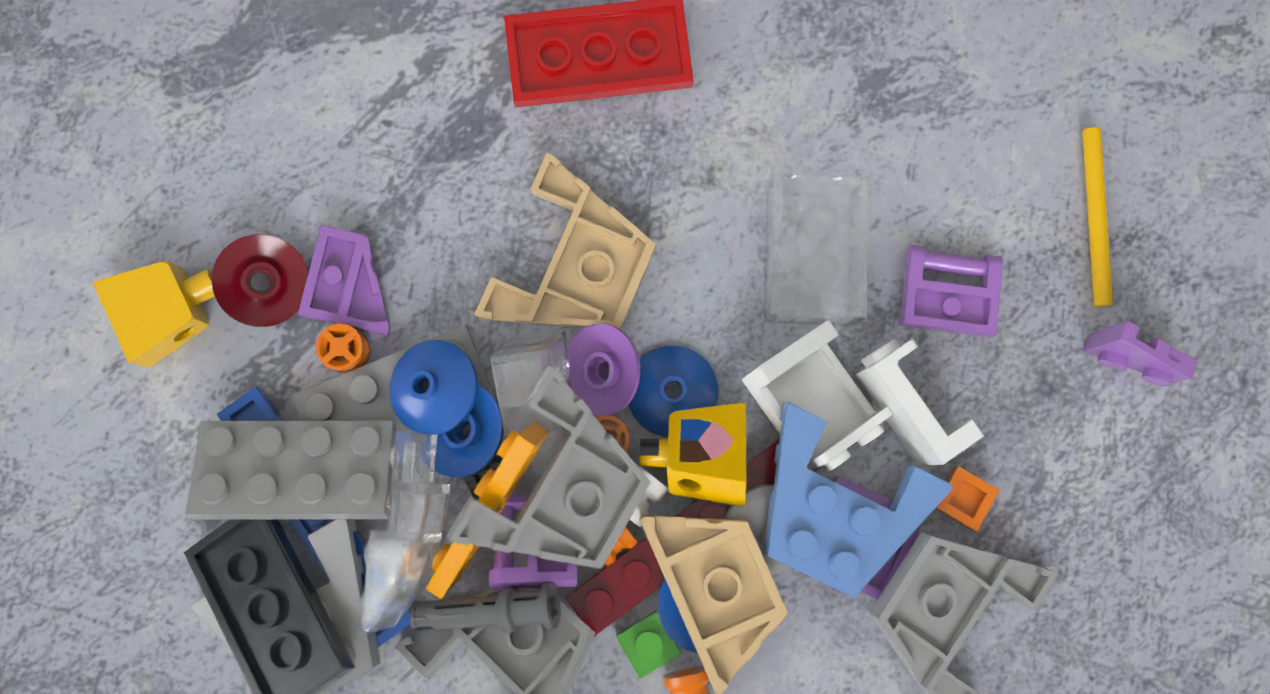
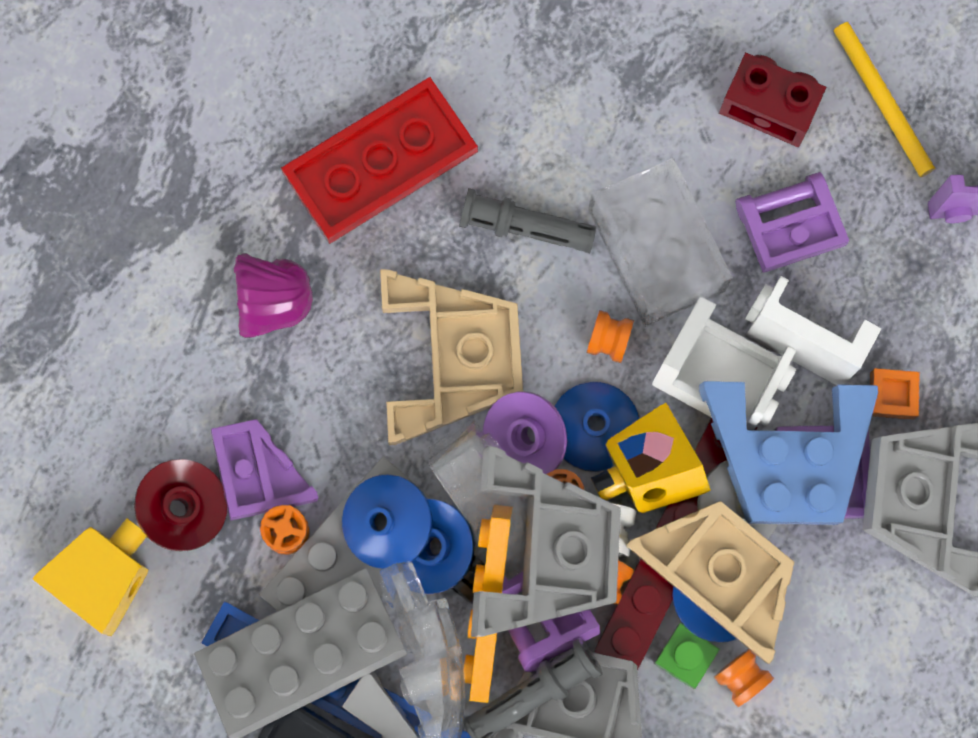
camera: 25 degrees left, 5 degrees down
(433, 127) = (270, 294): none -> magenta hair
(686, 160) = (507, 218): none -> dark grey pin
(726, 315) = (610, 336): none -> orange wheel
(992, 166) = (772, 99): none -> dark red brick

